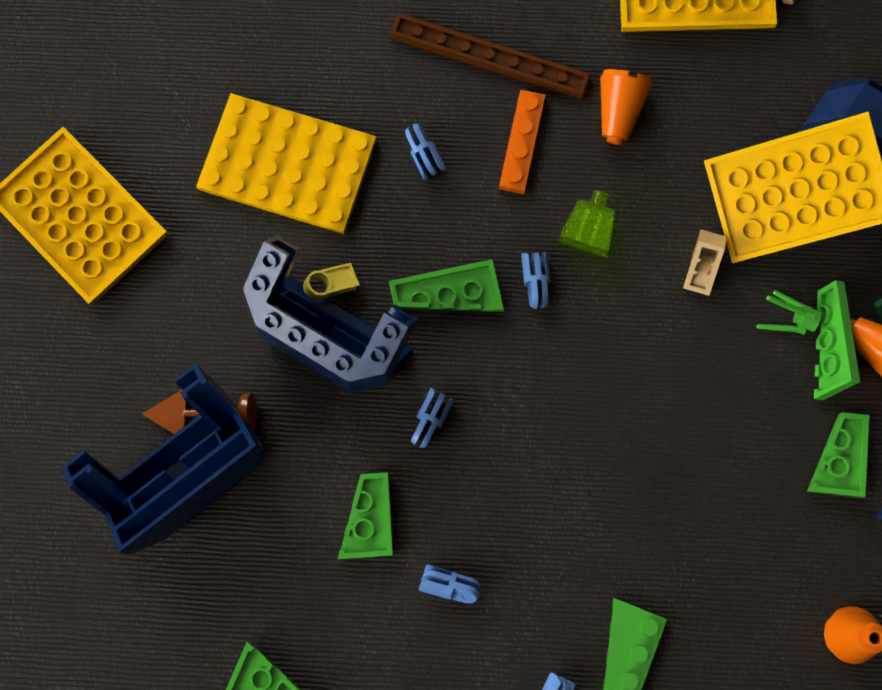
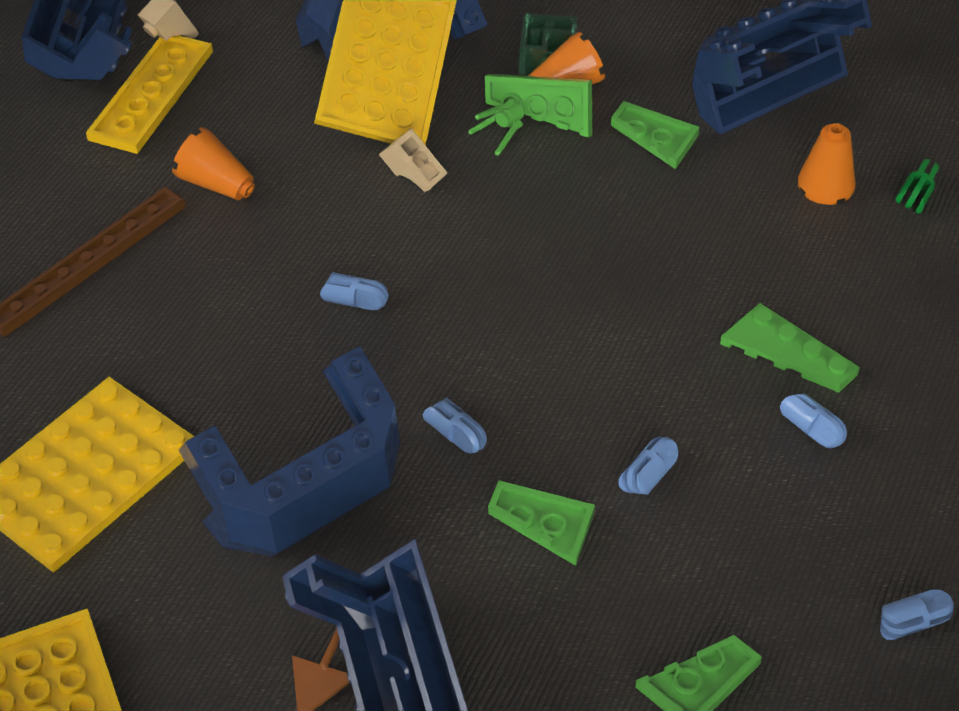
camera: 75 degrees left, 30 degrees down
(336, 279) = (253, 460): light yellow piece -> none
(423, 151) = (155, 339): medium blue arm -> none
(454, 289) = (310, 387): bright green wing -> none
(522, 142) = (199, 262): orange plate -> none
(590, 225) = (325, 233): clear neon green torso -> none

